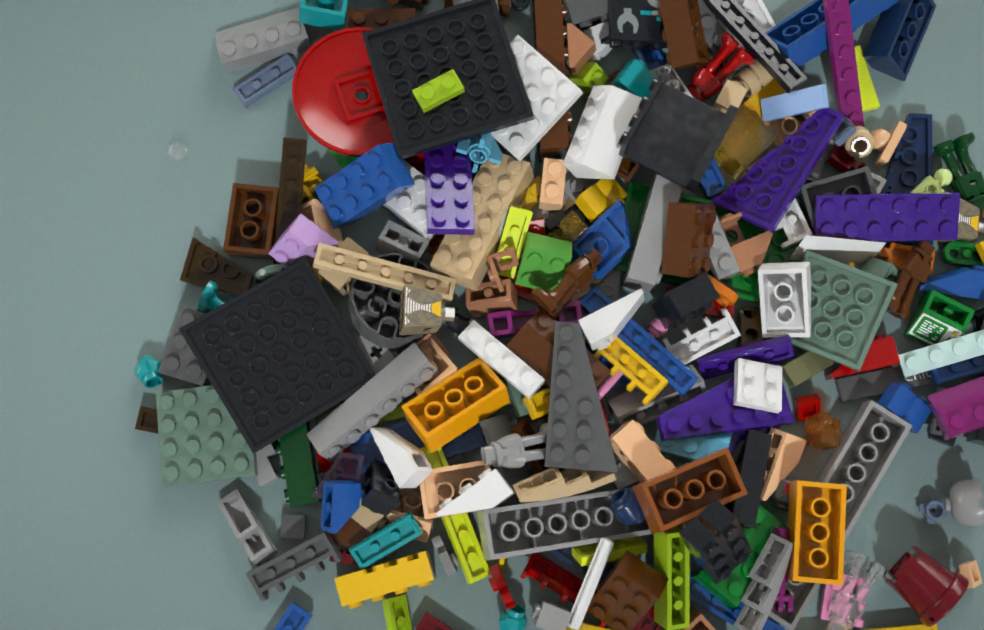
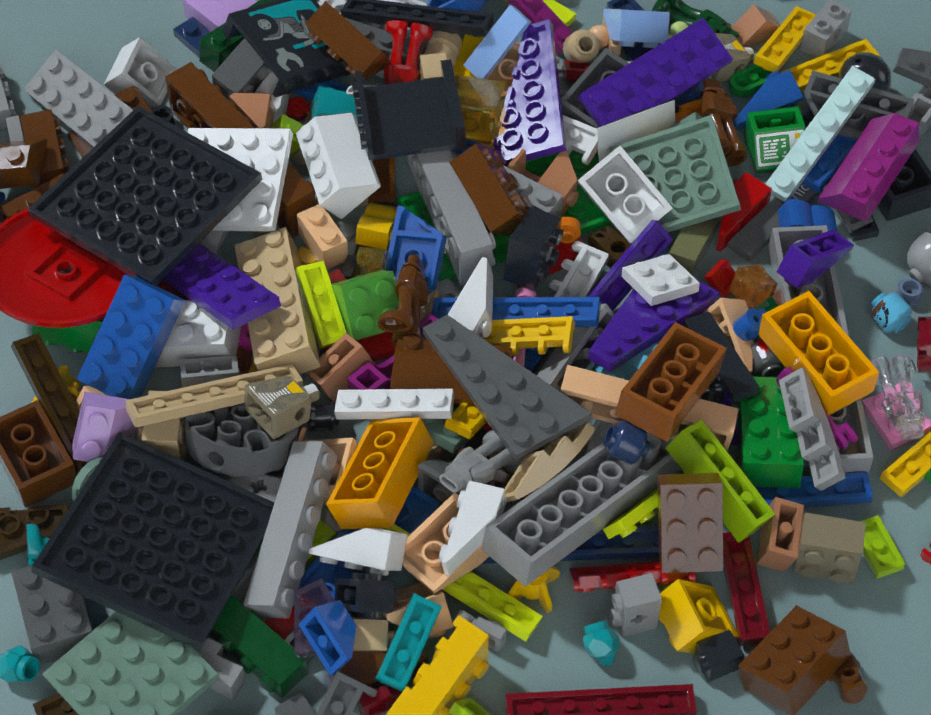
camera: 35 degrees left, 25 degrees down
(438, 90) = (148, 206): lime plate -> none
(480, 150) = (226, 242): medium azure brick -> none
(497, 267) = (328, 332): nougat bracket -> none
(498, 584) = (560, 614): red plate -> none
(590, 583) = (647, 536): white axle -> none
(618, 59) = (297, 109): none -> red plate
(719, 552) = (733, 405): black piece -> none
(802, 469) = (748, 324): none -> blue leg
(844, 132) = (562, 43): sand blue tile -> none
(879, 450) = (812, 257): none -> dark purple slope
(905, 519) = (891, 312): none -> medium azure head
(911, 155) = (637, 26): none -> light blue slope

